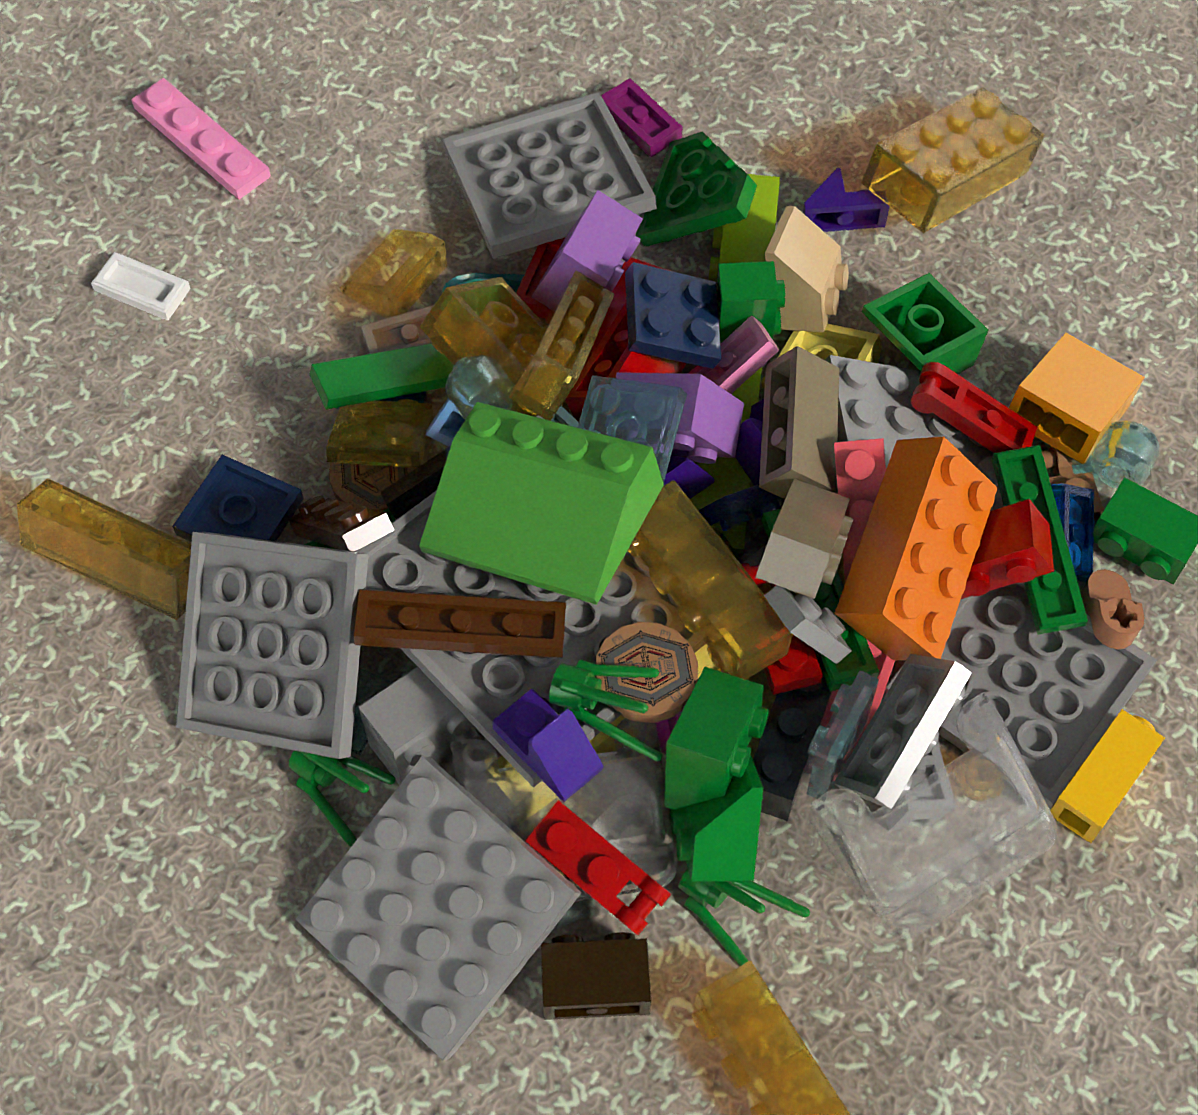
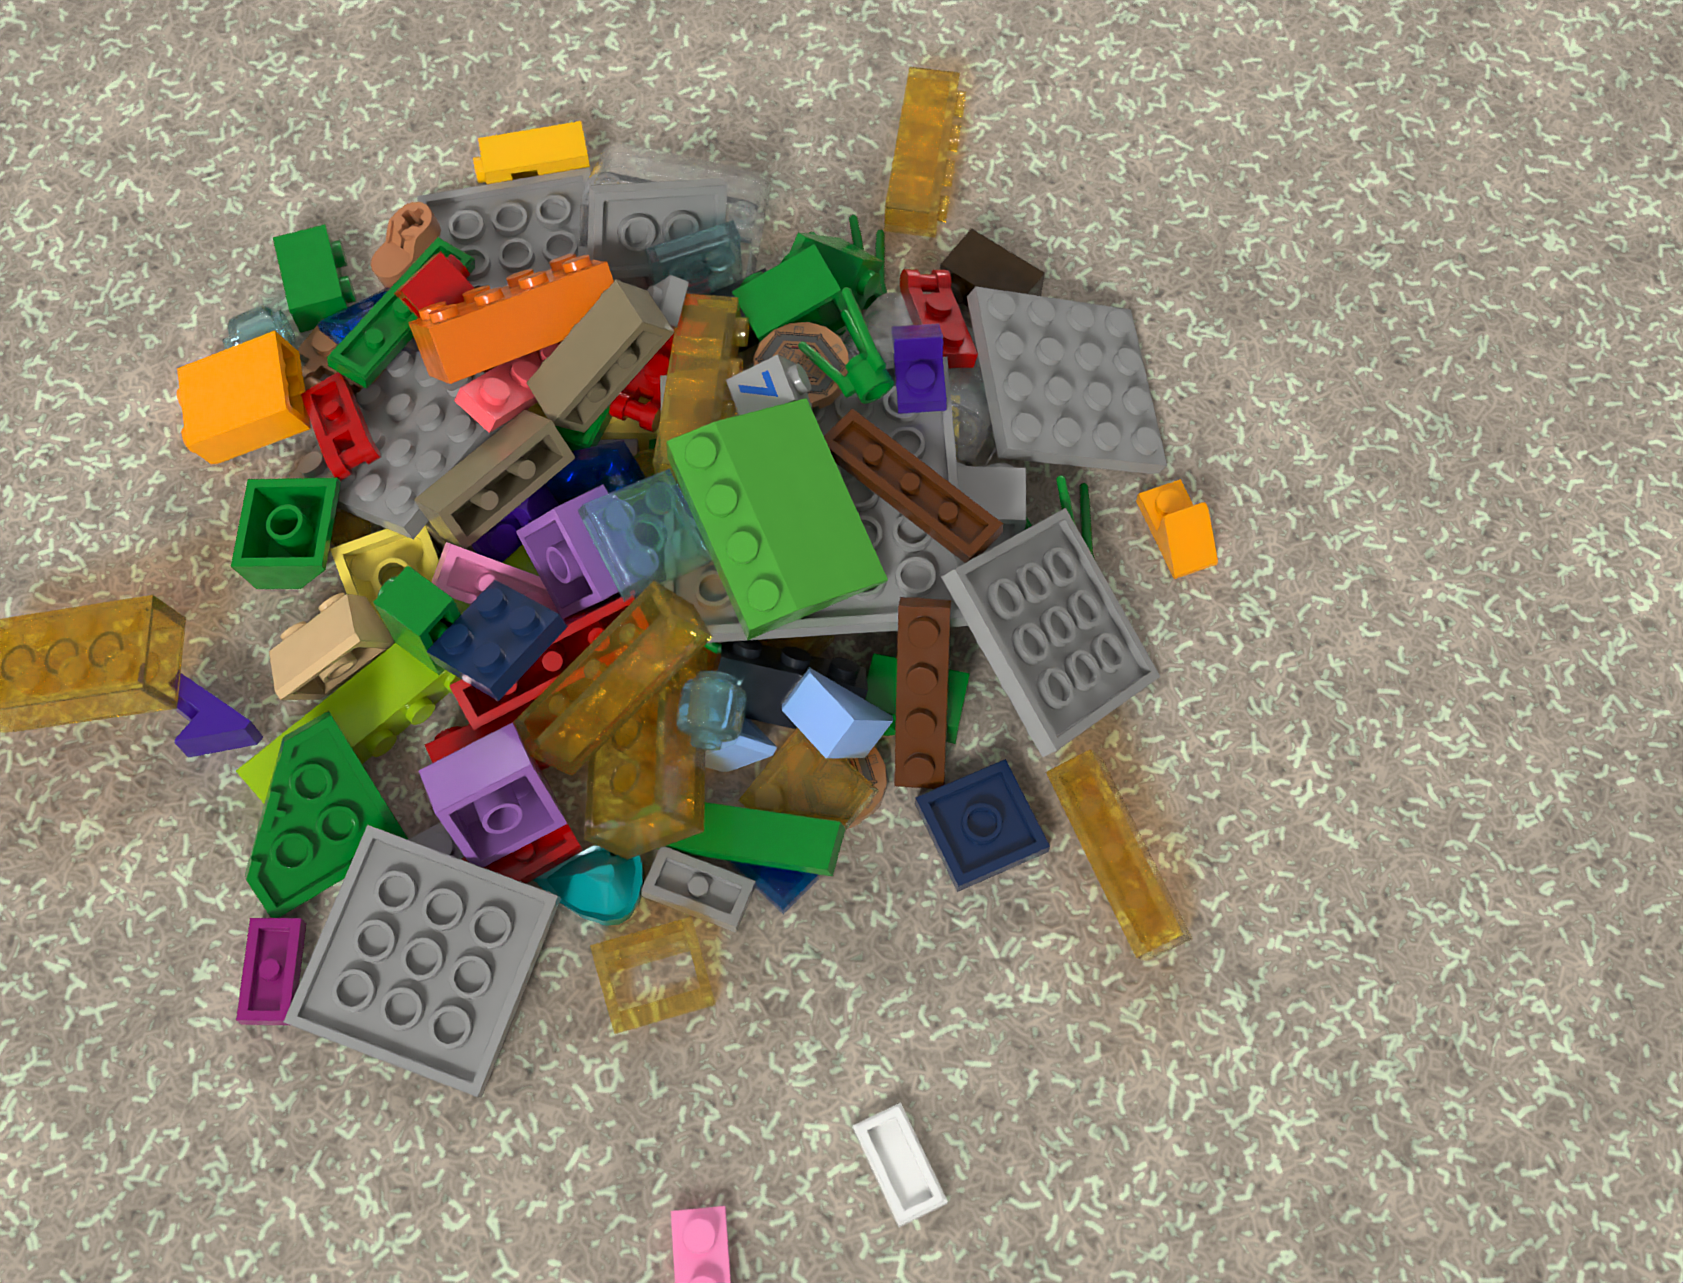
camera: 140 degrees left, 5 degrees up
(248, 869) = (1179, 528): none -> light orange slope
(393, 467) = (834, 717): none -> light blue slope
(637, 601) = (769, 385): none -> light grey brick

